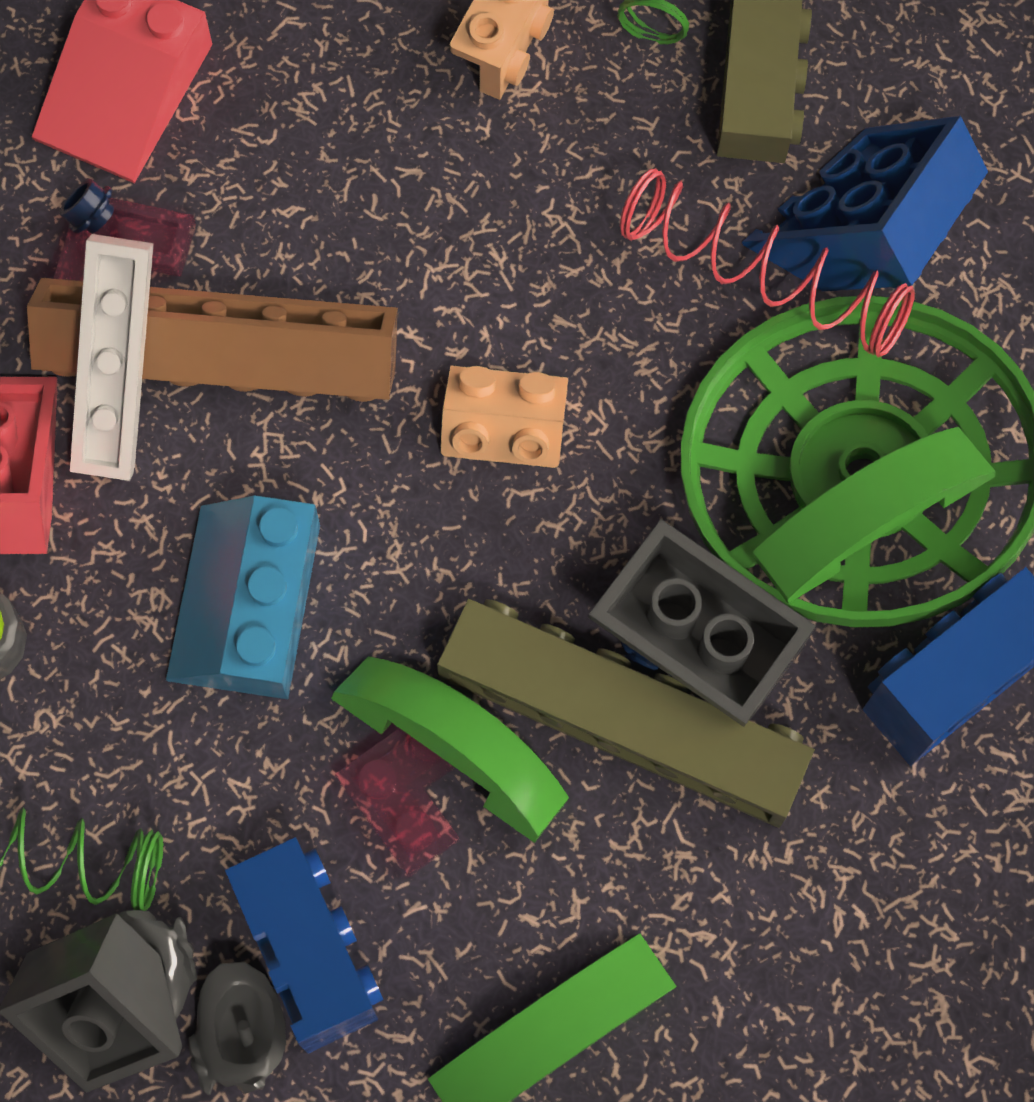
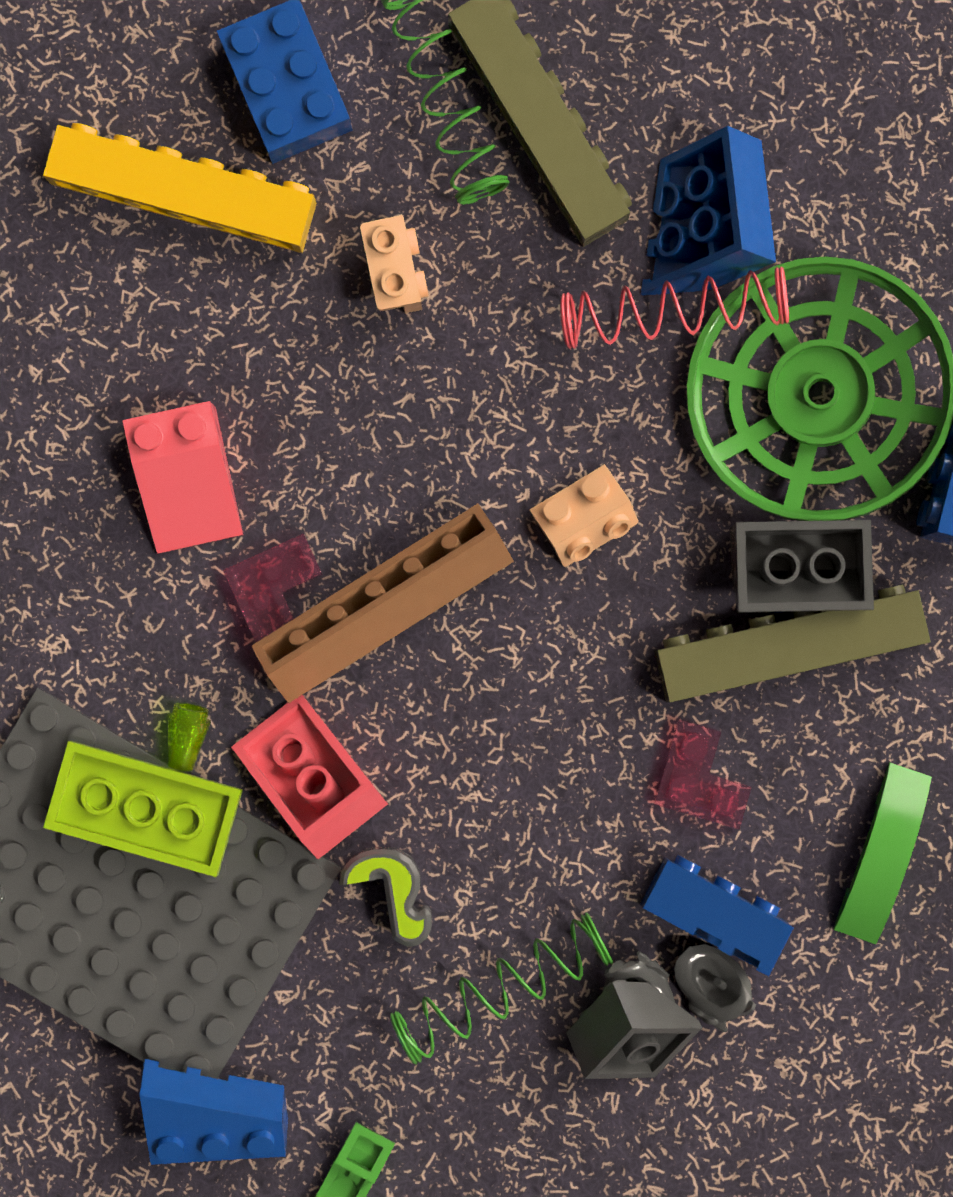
camera: 35 degrees left, 15 degrees up
(87, 207) = (242, 581): dark blue plate -> none
(110, 356) = (341, 667): white plate -> none
(245, 596) = (521, 743): dark azure slope -> none
(460, 733) = (706, 730): bright green slope -> none
(868, 506) = (855, 425): bright green slope -> none

